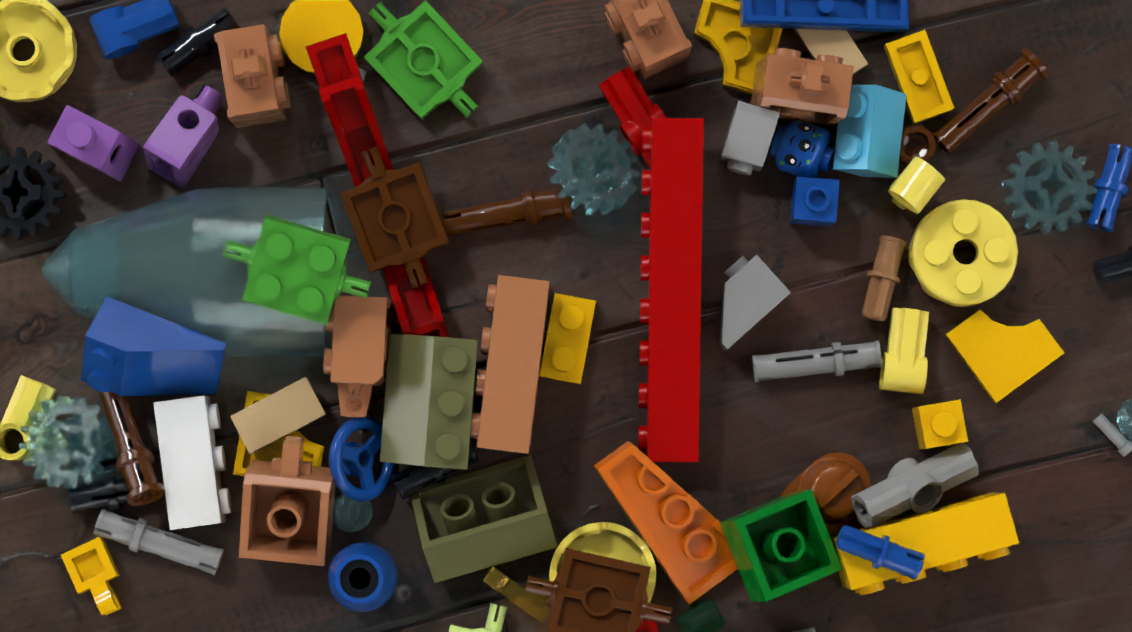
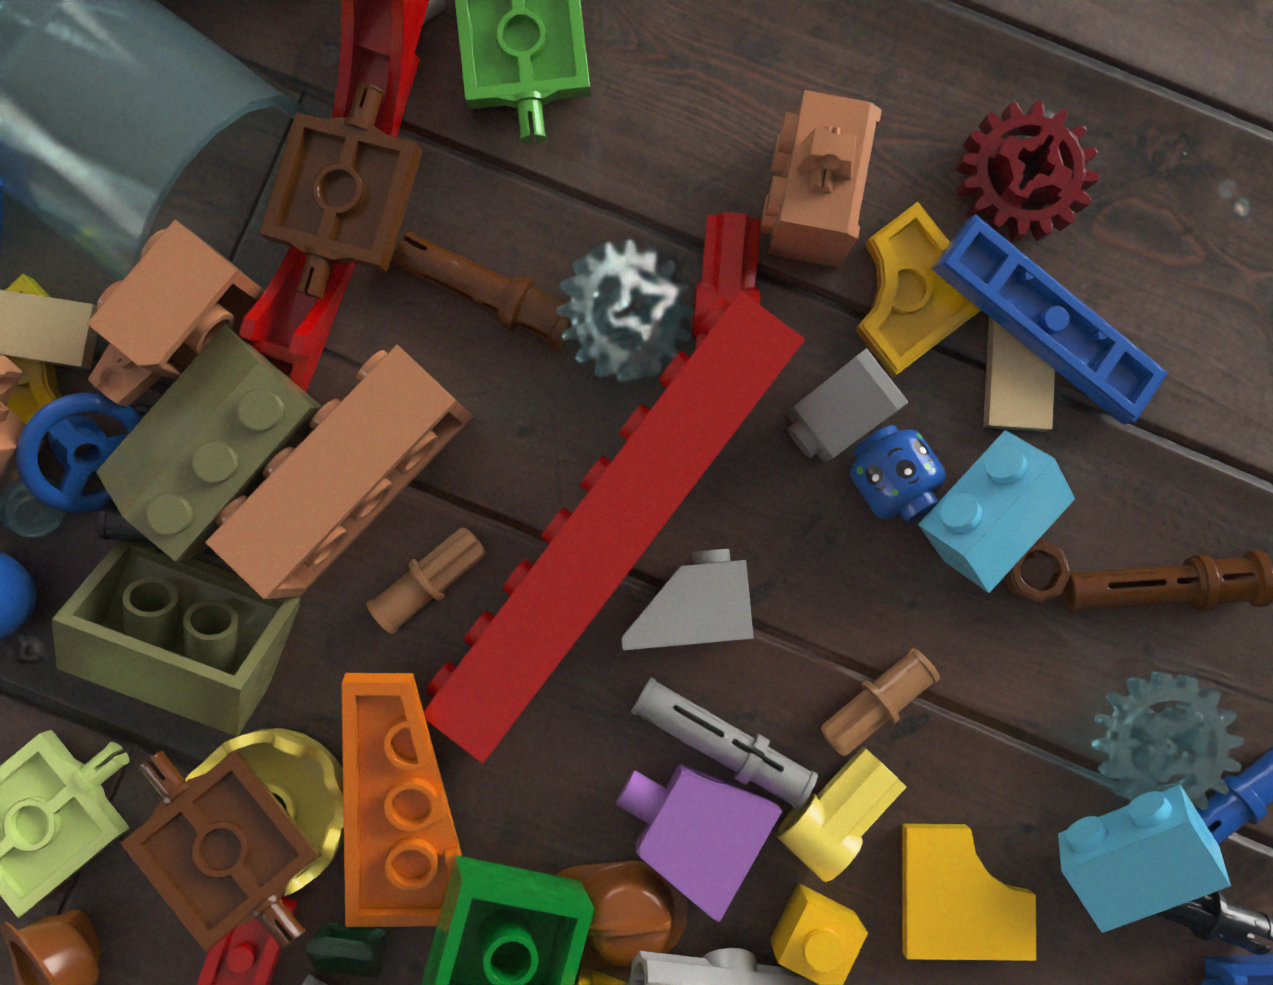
camera: 40 degrees right, 0 degrees up
(296, 269) = (135, 142): bright green plate -> none
(530, 603) = (142, 730): clear yellow plate -> none
(567, 338) = (445, 492): yellow plate -> none
(593, 392) = (426, 580): none -> medium nougat axle
(803, 87) = (963, 395): nougat hinge -> none
(814, 201) = (865, 547): blue brick -> none
(837, 416) = (699, 832): none -> medium lavender torso
(915, 185) = (1008, 621): light yellow piece -> none
(919, 77) = (1105, 489): yellow plate -> none
(933, 258) = (957, 738): light yellow plate -> none
(1073, 257) = (1141, 858): none -> medium azure brick

